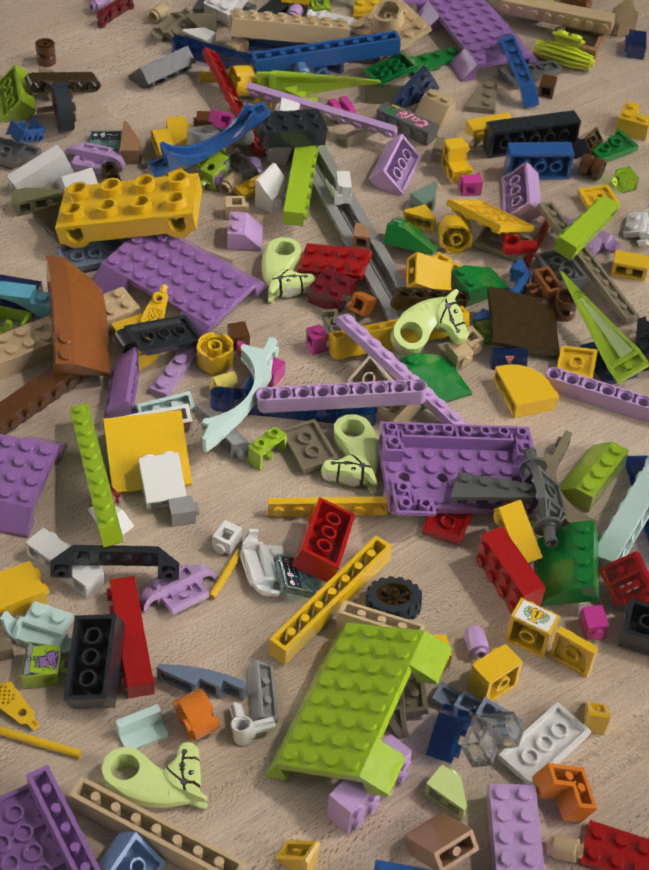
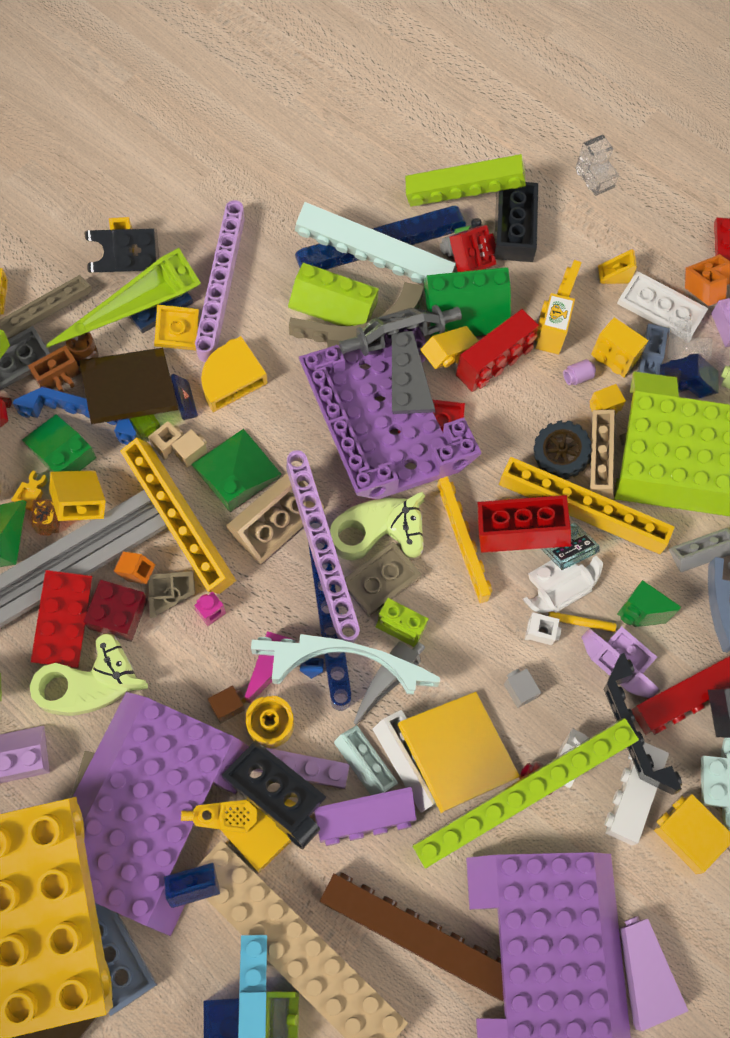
camera: 105 degrees left, 20 degrees up
(77, 321) = (272, 916): dark orange slope -> none
(116, 283) = (191, 885): none -> clear blue slope
(161, 479) = (495, 719): white brick -> none
(219, 610) = (647, 607): none -> green slope
(224, 380) = (312, 699): light yellow brick -> none
(361, 236) = (19, 588): medium nougat brick -> none
(395, 367) = (255, 496): lavender plate -> none
(407, 297) = (121, 486): dark brown beam -> none
(423, 317) = (171, 480): yellowish green animal -> none
(593, 622) = (521, 280): dark pink brick -> none

